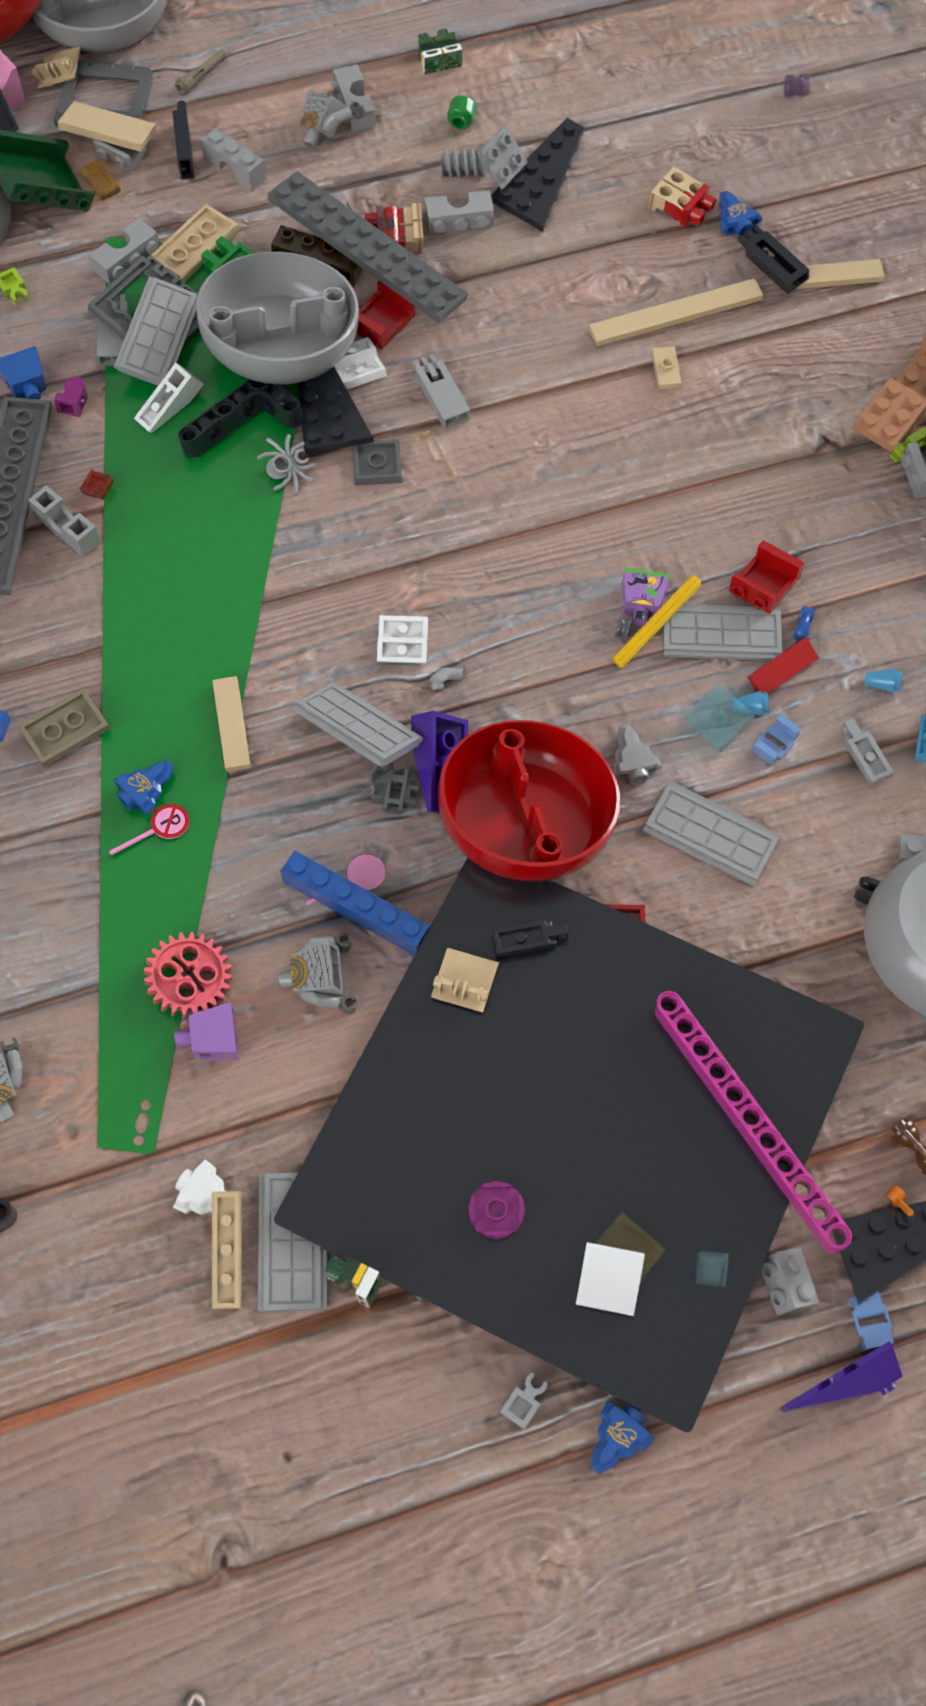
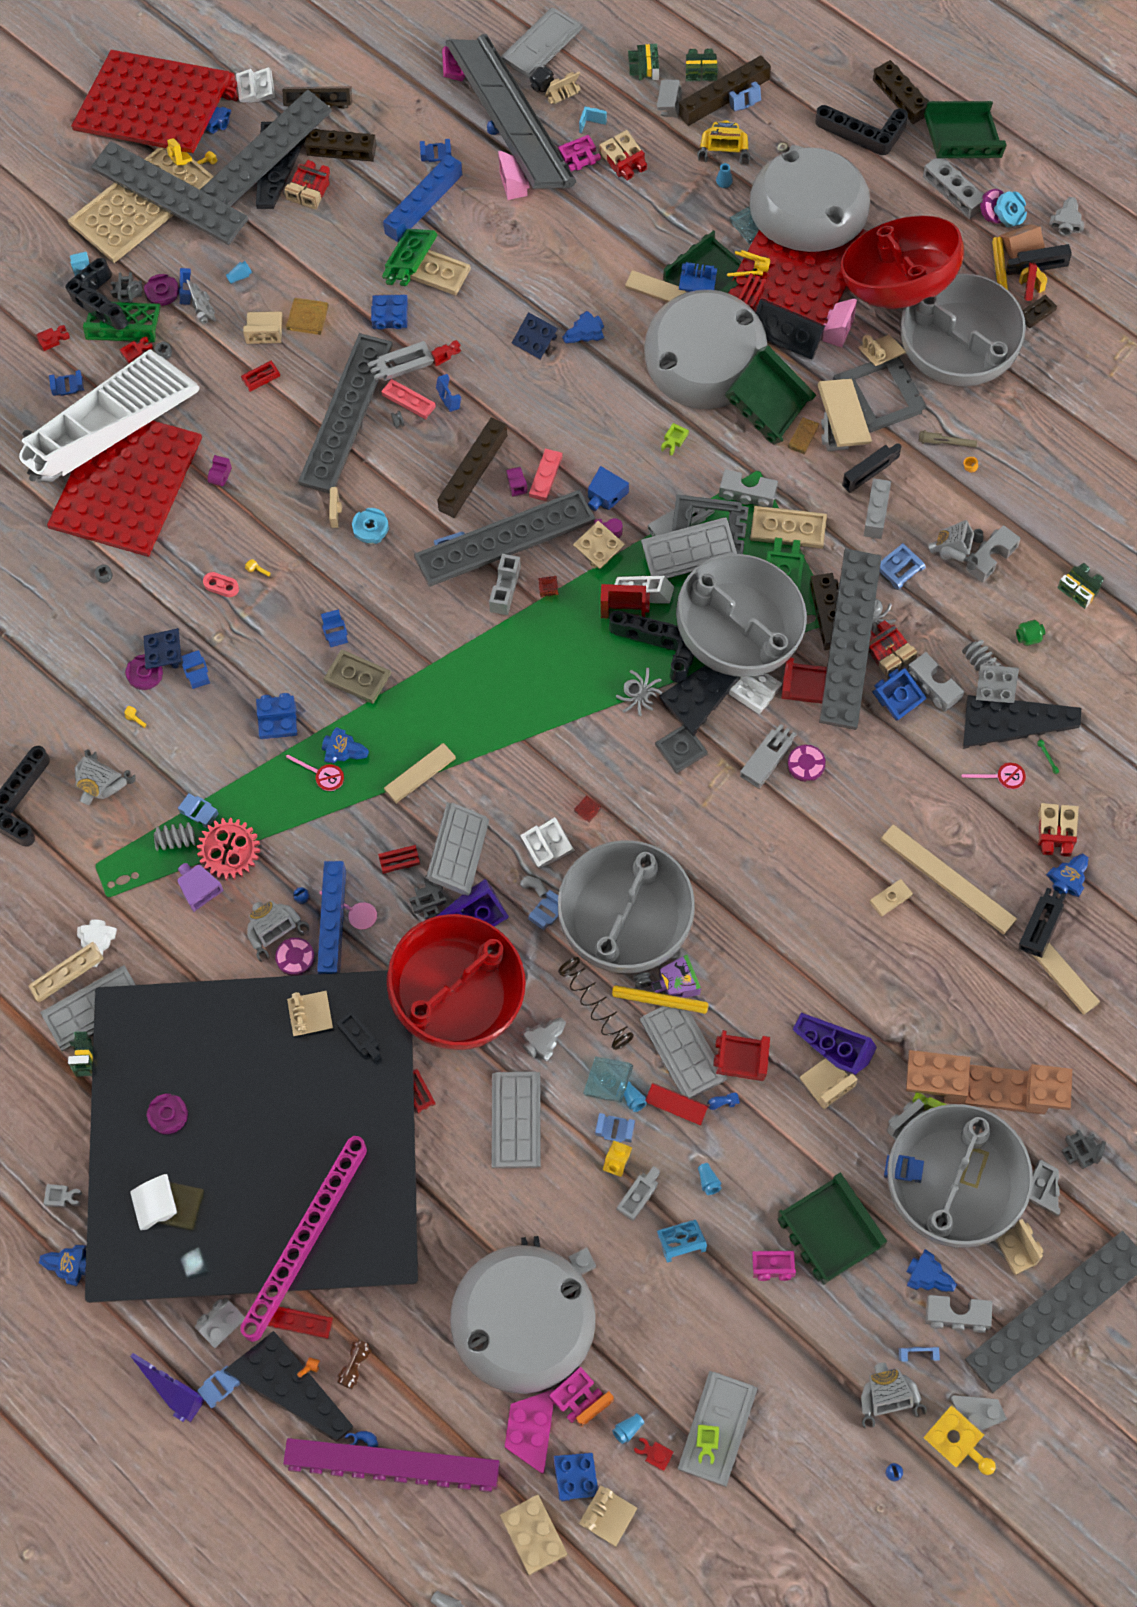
camera: 65 degrees right, 0 degrees up
(51, 839) = (276, 716): none -> blue plate
(87, 411) = (598, 545): none -> tan hinge
(100, 991) = (205, 815): none -> medium blue piece
(128, 1027) = (174, 836): none -> light grey piece
(169, 415) = (624, 598): none -> red panel
(243, 60) = (968, 462): none -> light orange hinge
(304, 166) = (896, 562): none -> medium blue plate
(305, 926) = (303, 897): none -> blue hinge
(337, 781) = (397, 852): none -> red tile
(372, 969) = (295, 956): none -> tile
(388, 582) = (587, 808): none -> clear red plate
(450, 246) = (898, 693): none -> blue plate
(471, 362) = (806, 763): none -> tile
(478, 669) = (539, 917): none -> medium blue piece
(538, 592) = (626, 908): none -> light grey cylinder
(596, 209) = (1009, 775): none -> piece
(615, 171) = (1040, 743): none -> green hinge
(683, 682) = (614, 1043): none -> dark brown piece
(805, 486) = (838, 1045): none -> dark purple wedge
(814, 753) = (617, 1158): none -> yellow bracket
(838, 519) = (827, 1082): none -> tan bracket
(841, 1178) = (301, 1322): none -> red tile

